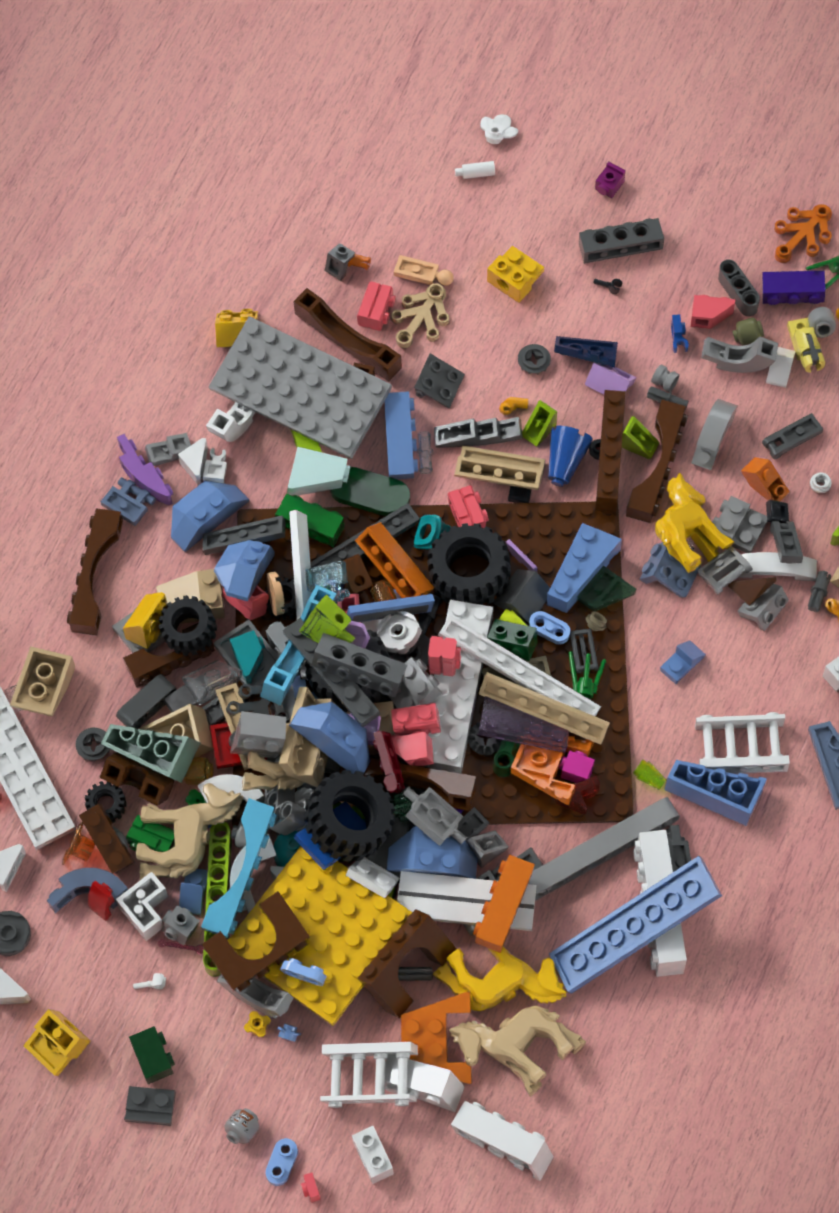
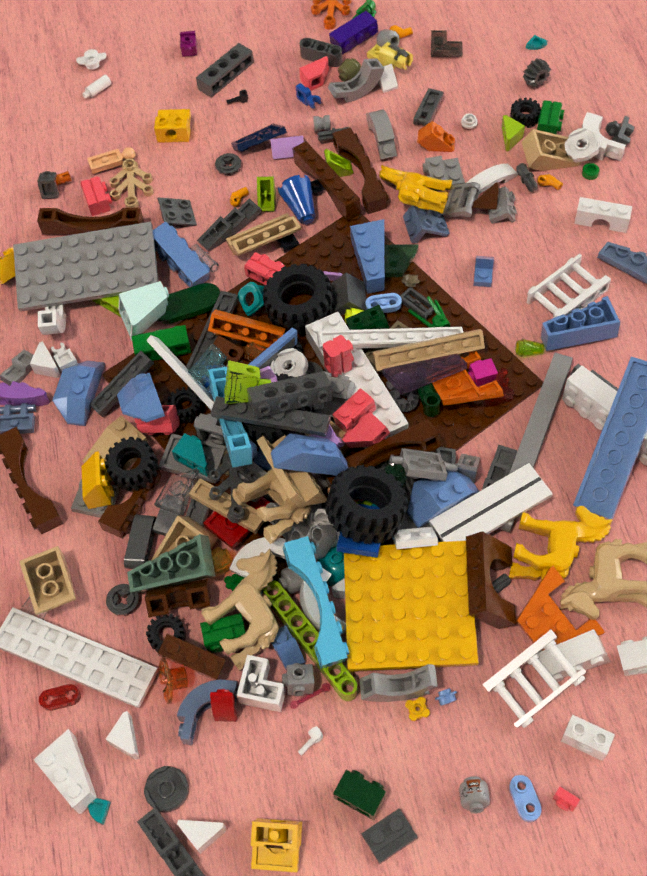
camera: 35 degrees left, 5 degrees down
(259, 734) = (255, 490): light grey slope -> none
(275, 593) = (181, 398): light nougat tile -> none
(289, 937) = (394, 621): reddish brown arch -> none
(311, 975) = (435, 637): light blue plate -> none
(389, 762) = (362, 450): dark red hinge -> none
(504, 903) = (524, 487): orange brick -> none
(777, 511) = (460, 152): black tile -> none
(786, 542) = (484, 160): dark grey plate -> none

